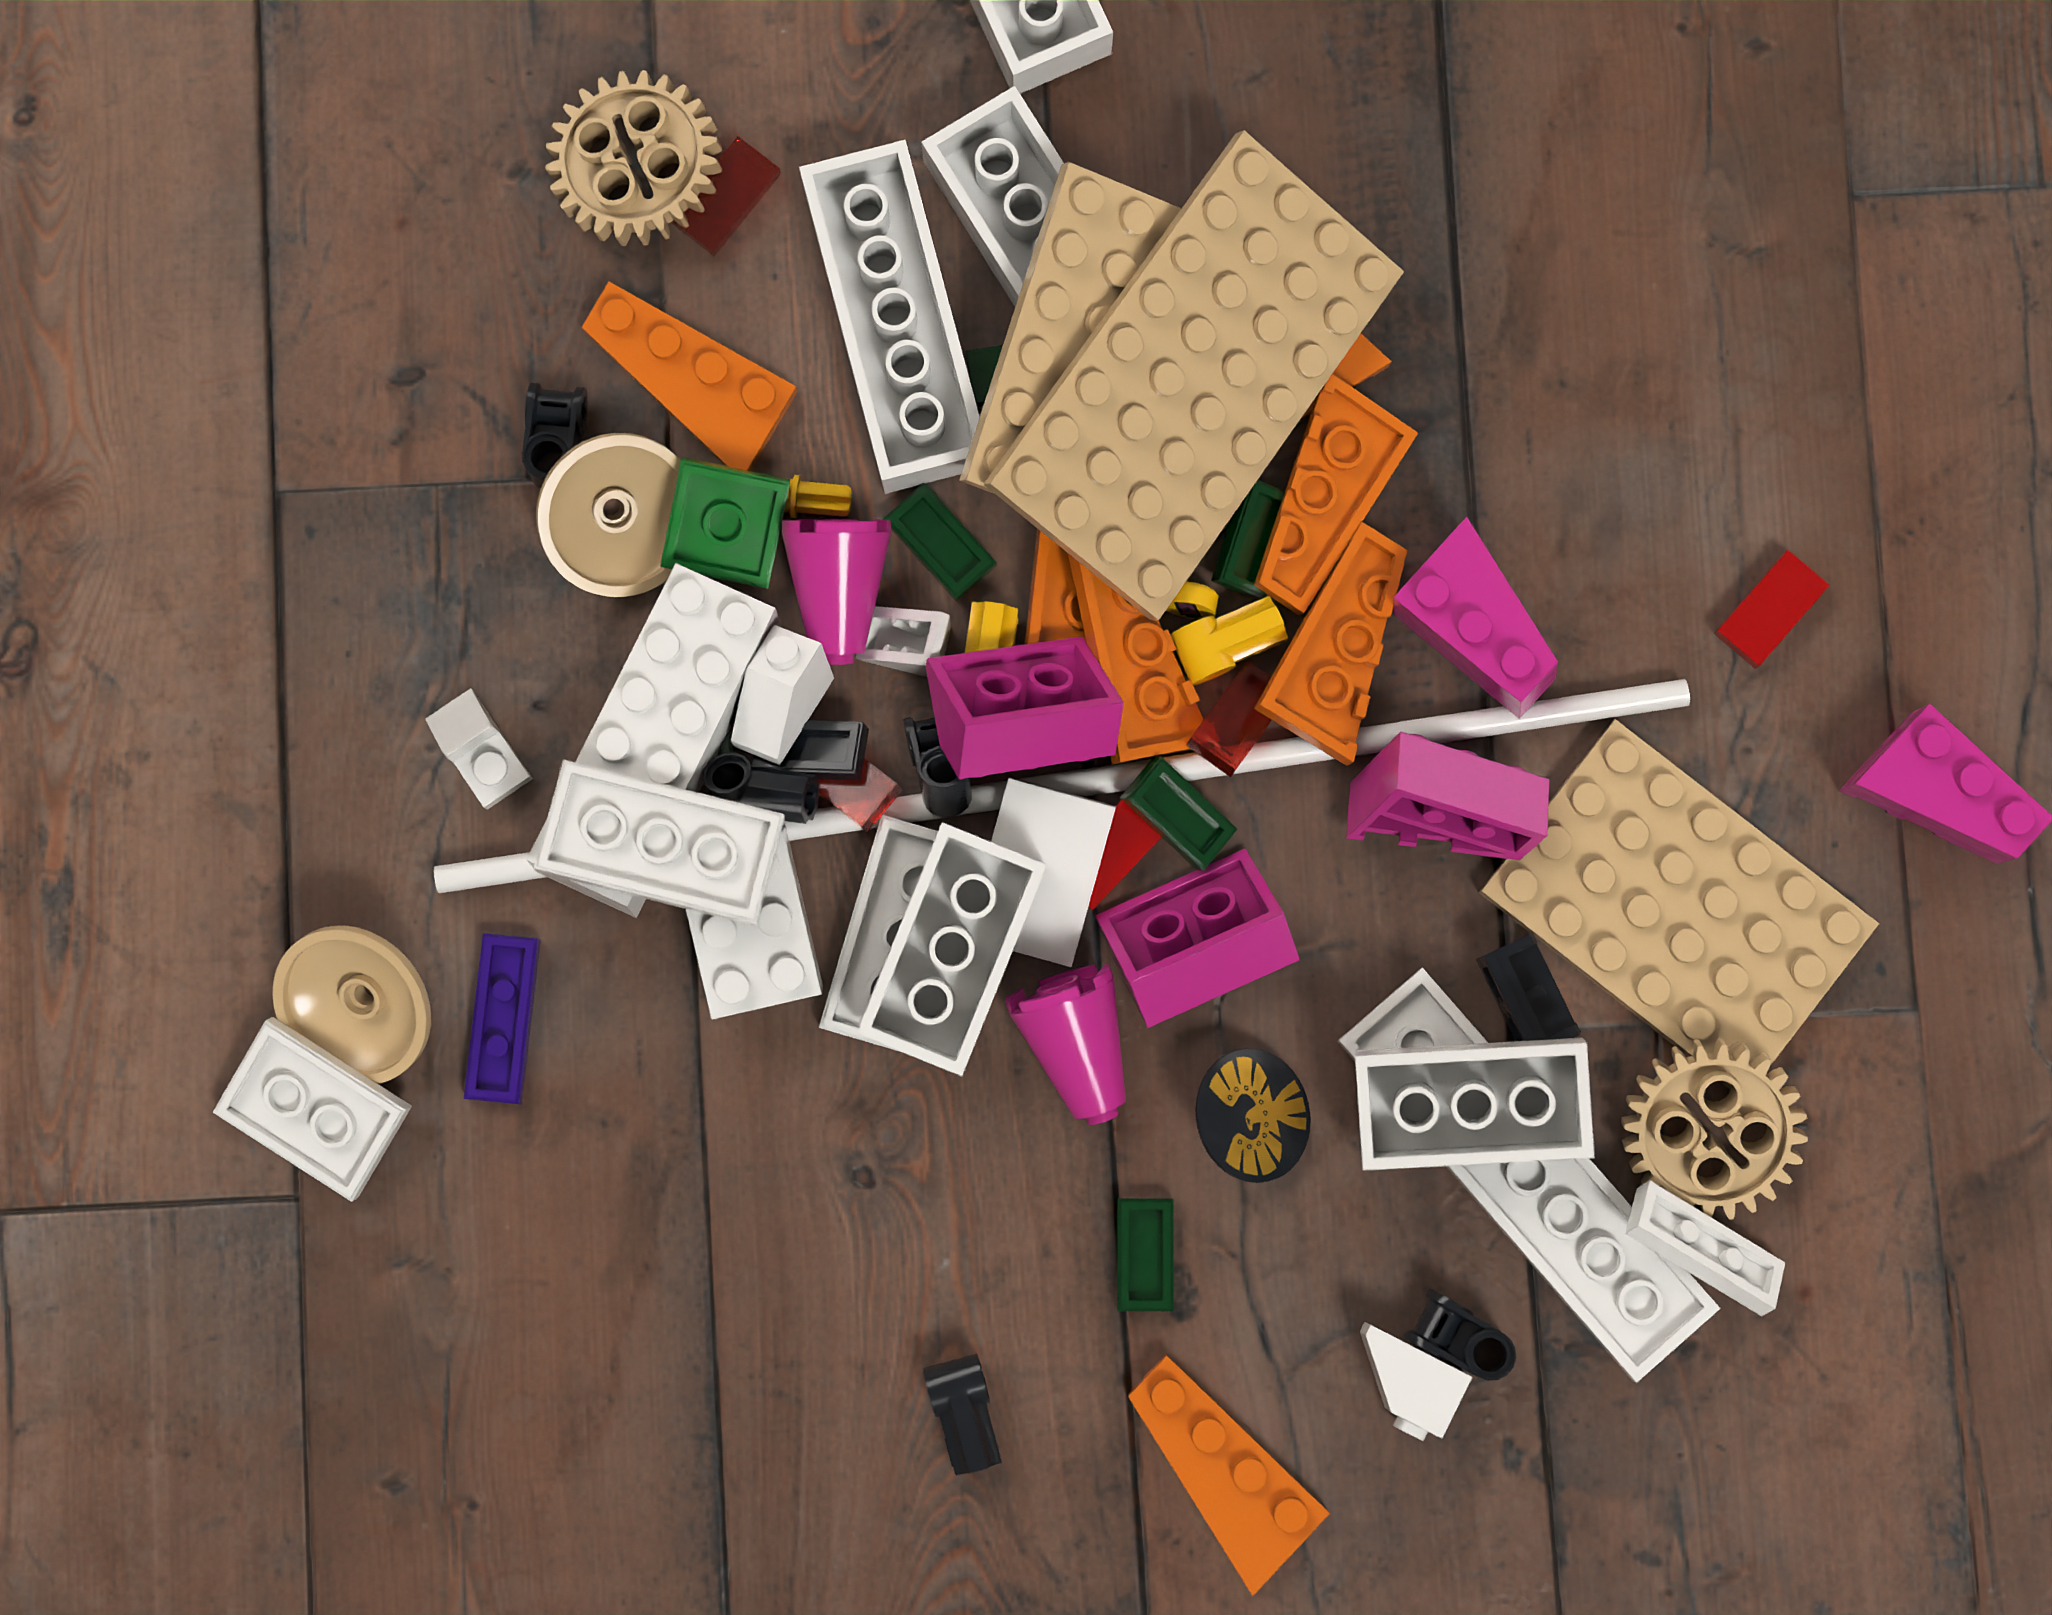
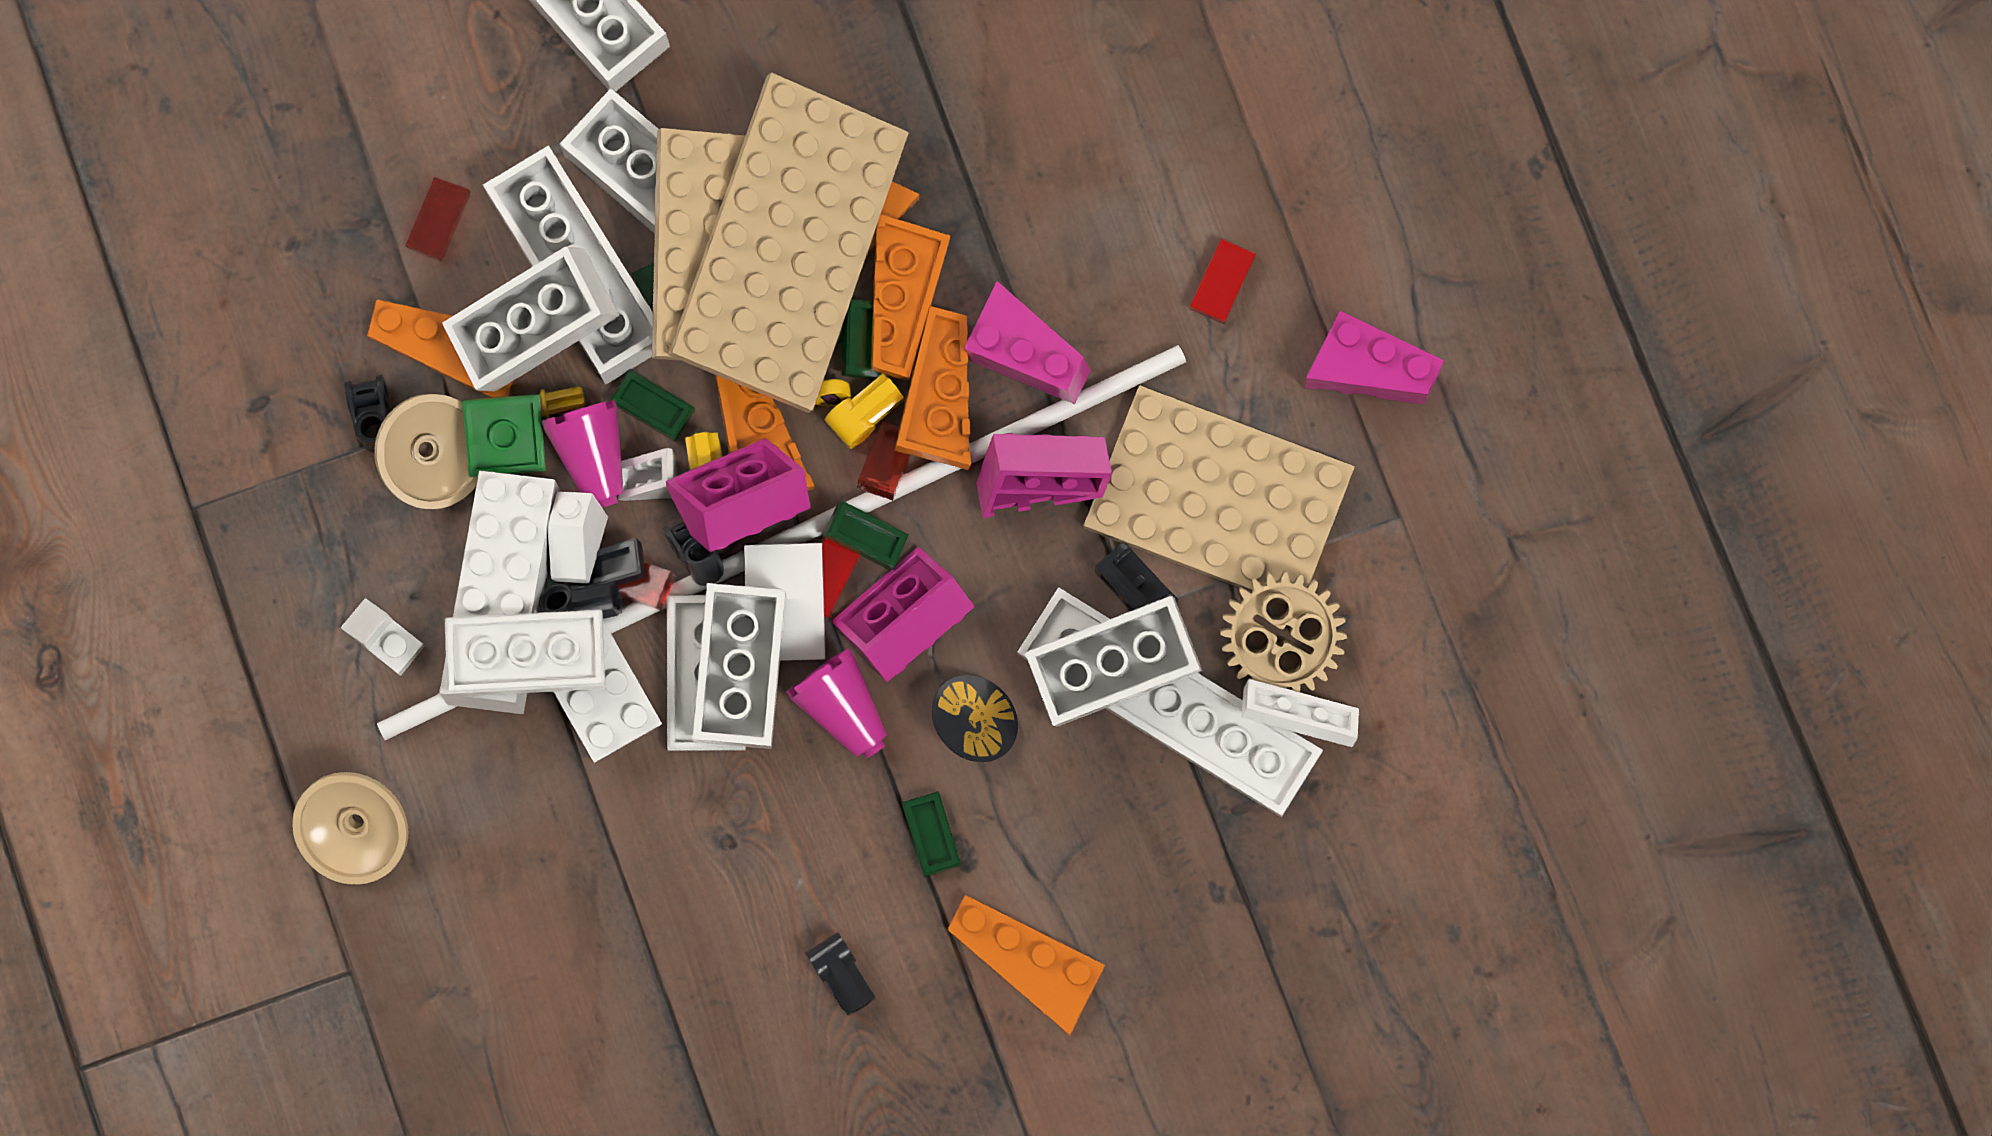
camera: 10 degrees left, 5 degrees down
(312, 1109) = (343, 907): white tile -> none
(502, 1018) = (452, 810): dark purple tile -> none
(678, 138) = (342, 235): tan gear -> none
(808, 374) = (530, 319): none -> white brick
(1141, 665) = (807, 439): orange wing -> none
(1413, 1383) = (1133, 861): white slope -> none
(1459, 1336) = (1155, 822): black piece -> none

